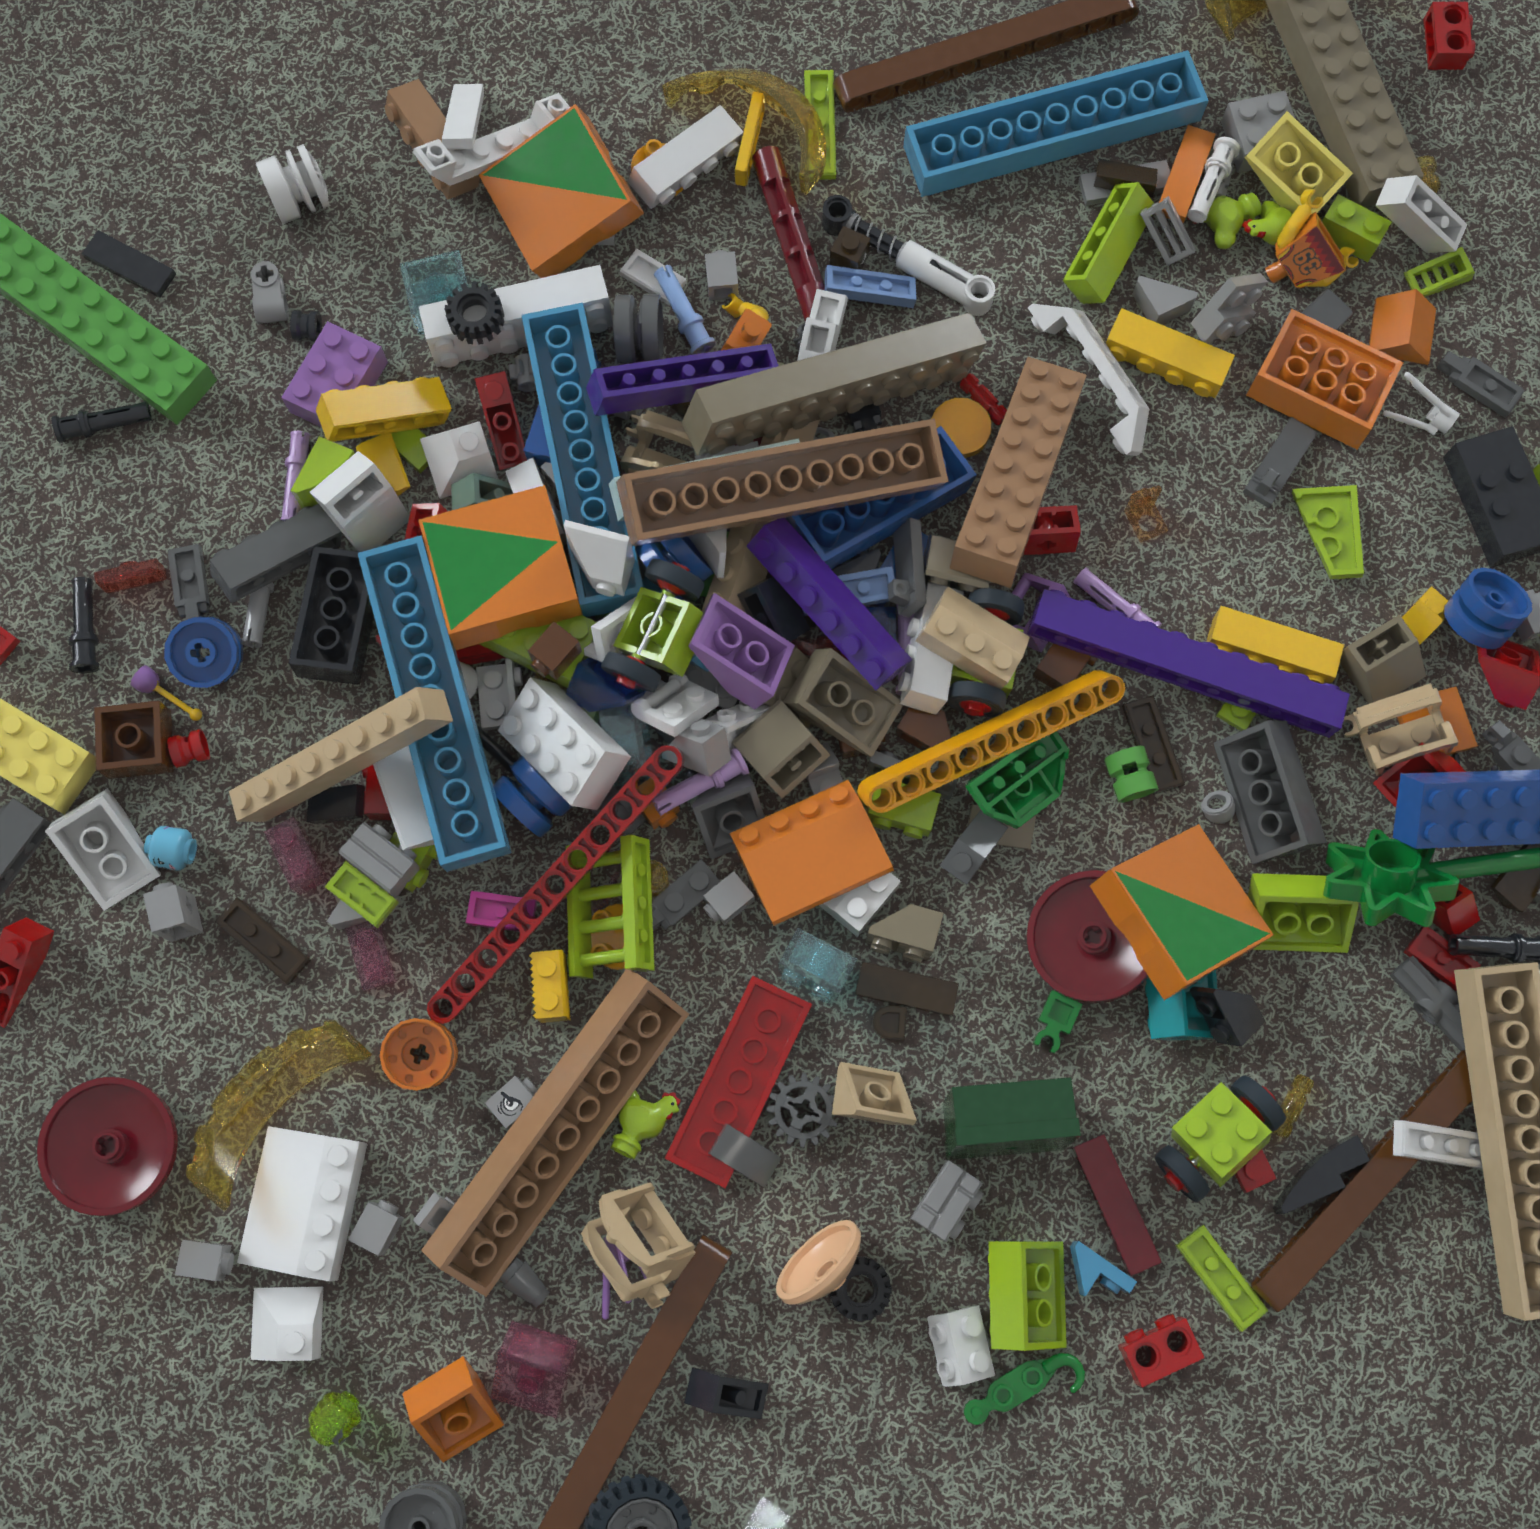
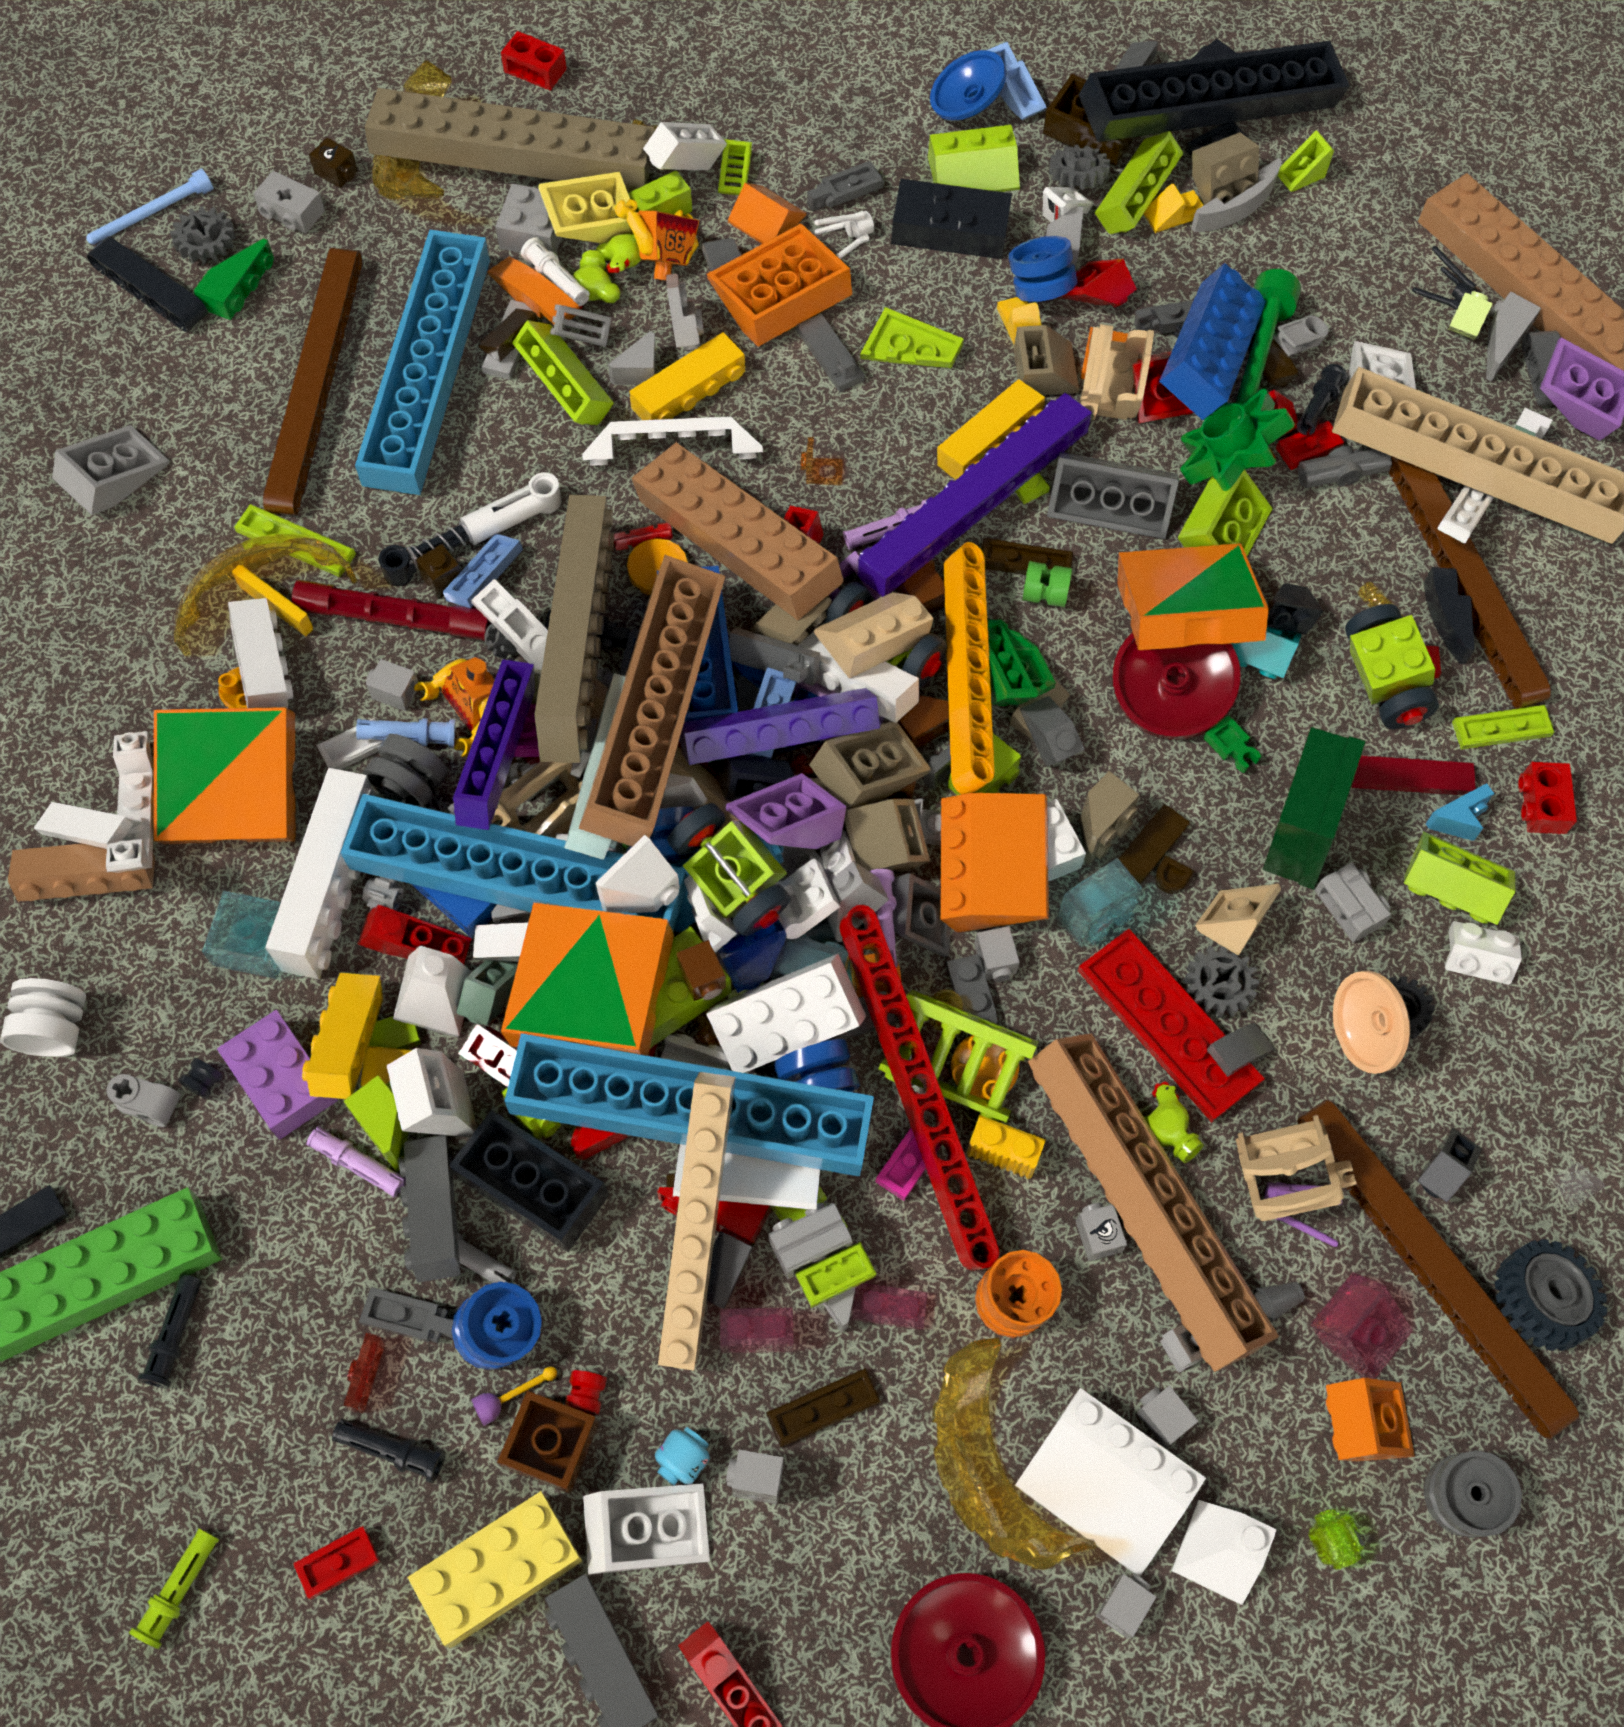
camera: 65 degrees left, 10 degrees down
(474, 329) = (299, 880): black tyre -> none
(1021, 1385) = (1534, 920): green piece -> none
(1222, 814) = (1112, 542): light grey piece -> none

